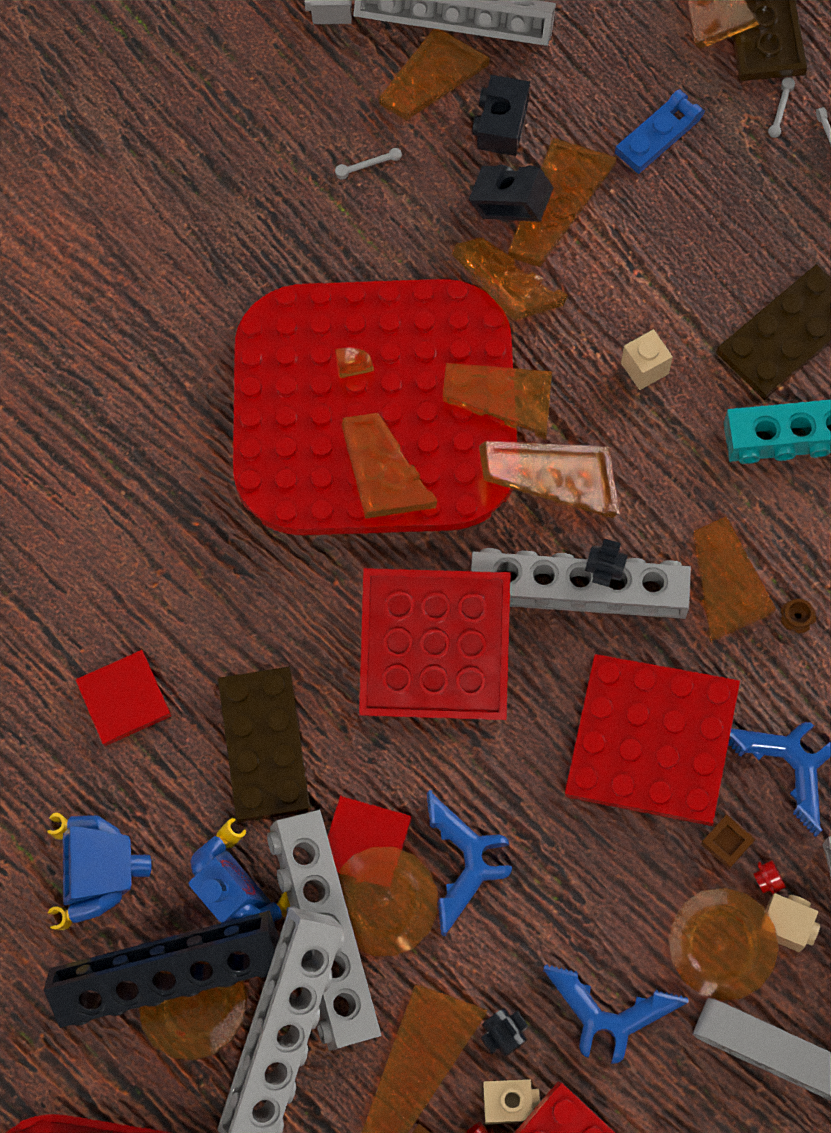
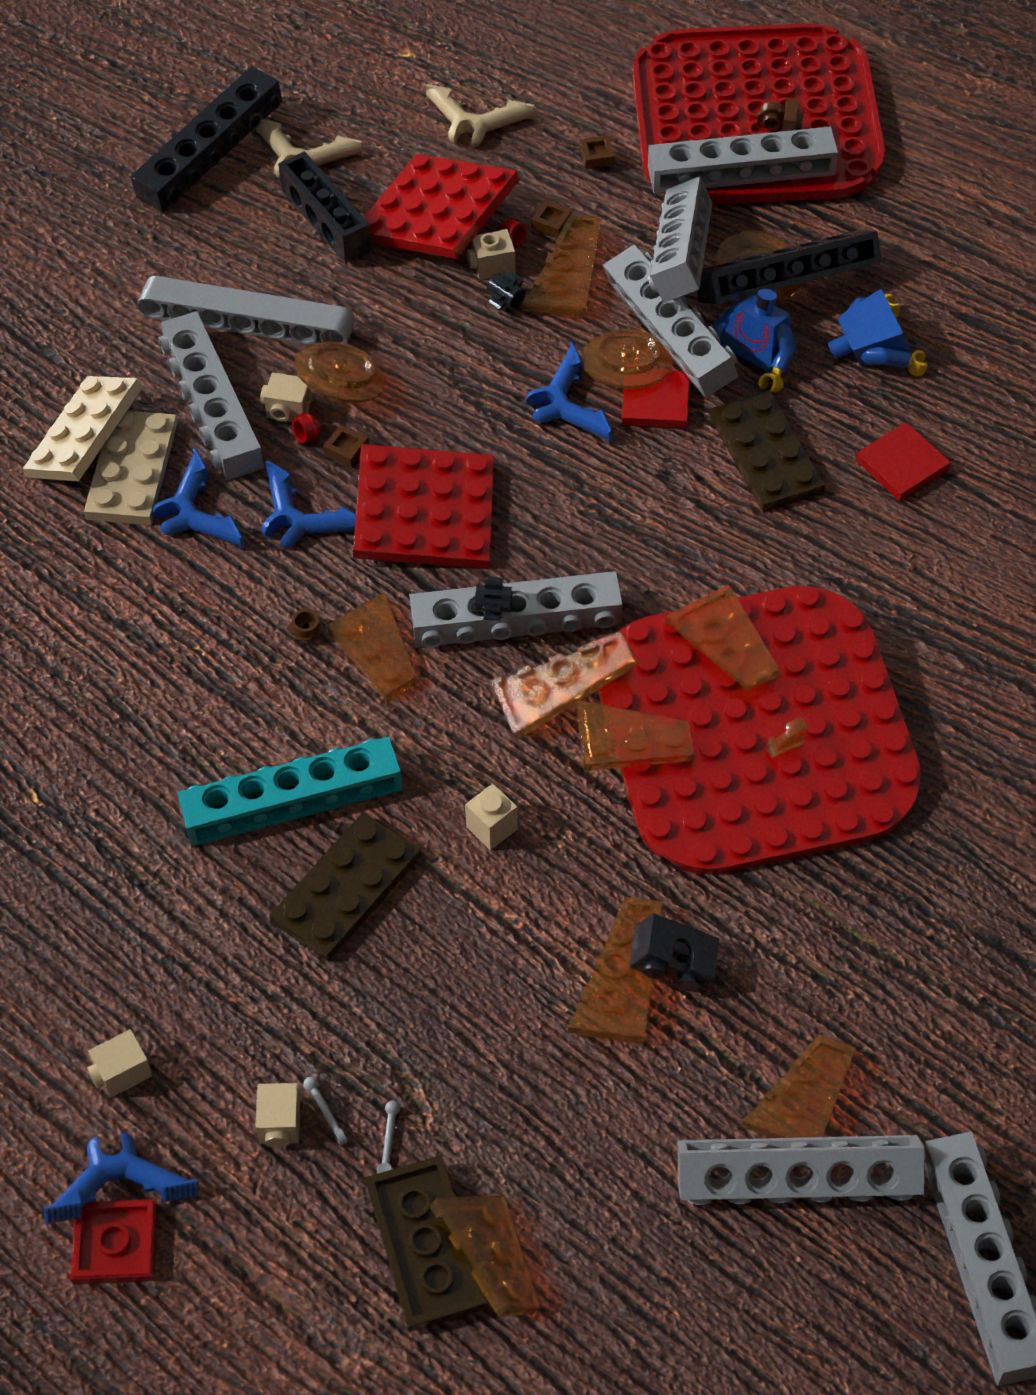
camera: 165 degrees right, 15 degrees down
(343, 171) = (870, 973): light grey hinge -> none
(434, 644) = (637, 529): red plate -> none
(503, 115) = (707, 1077): black brick -> none
(510, 287) = (654, 871): clear orange wing -> none
(618, 1025) = (423, 316): blue piece -> none
(659, 132) = (525, 1079): blue plate -> none

